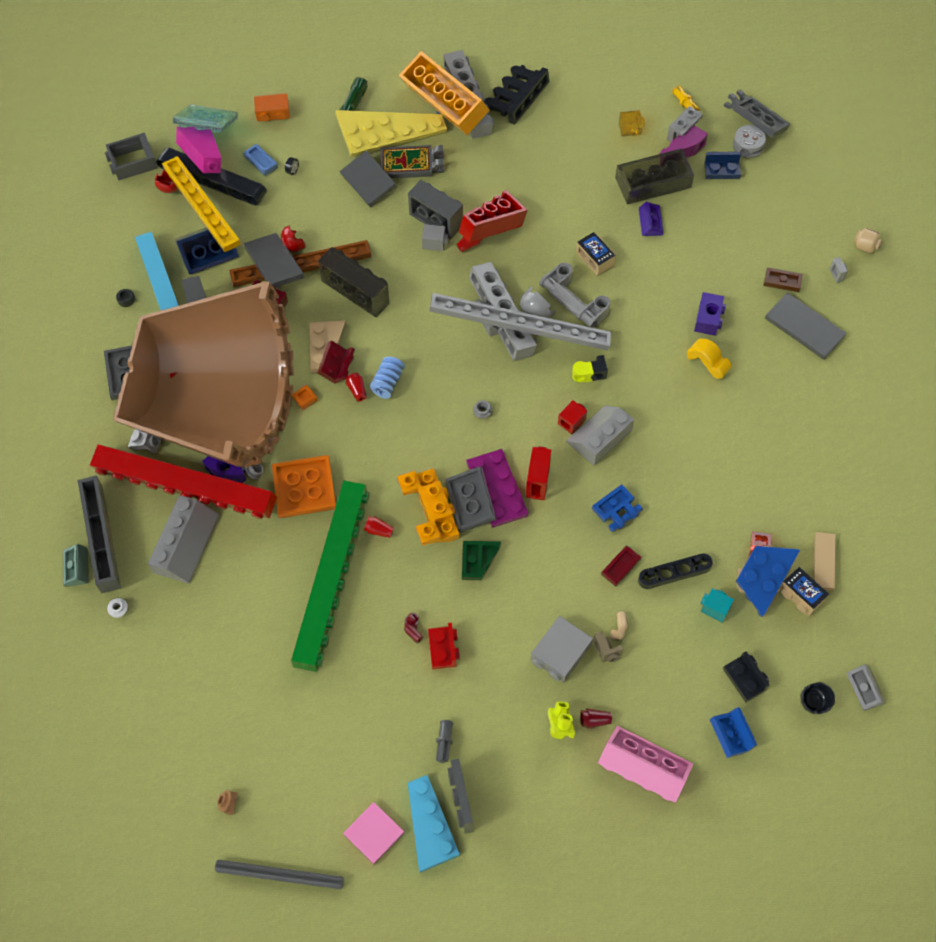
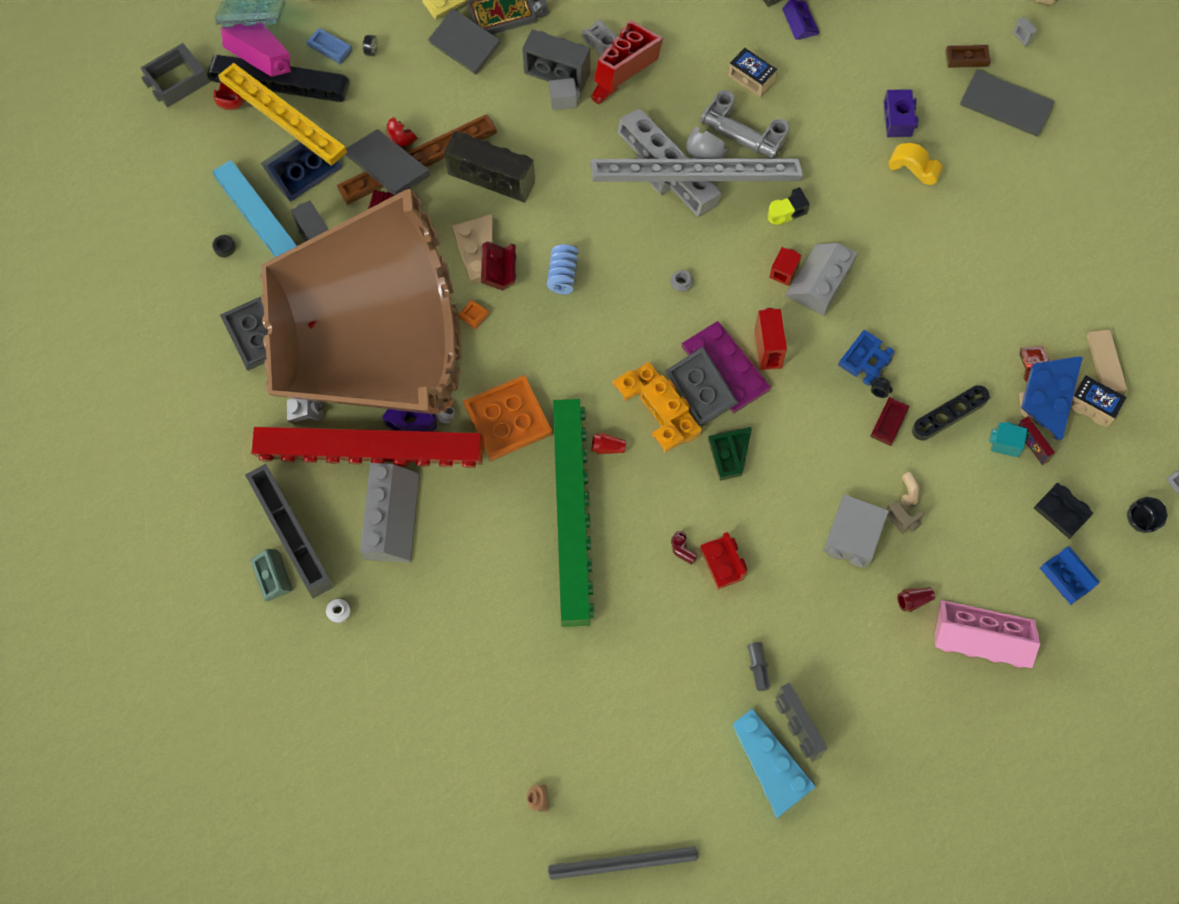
camera: 15 degrees left, 5 degrees up
(356, 386) = (530, 288): red cone -> none
(373, 833) = (713, 789): bright pink tile -> none
(477, 196) = (599, 36): none -> light grey piece
(561, 721) = (882, 612): neon yellow hips -> none
(622, 536) = (881, 387): none -> black plate
(740, 612) = (1036, 441): none -> dark red tile

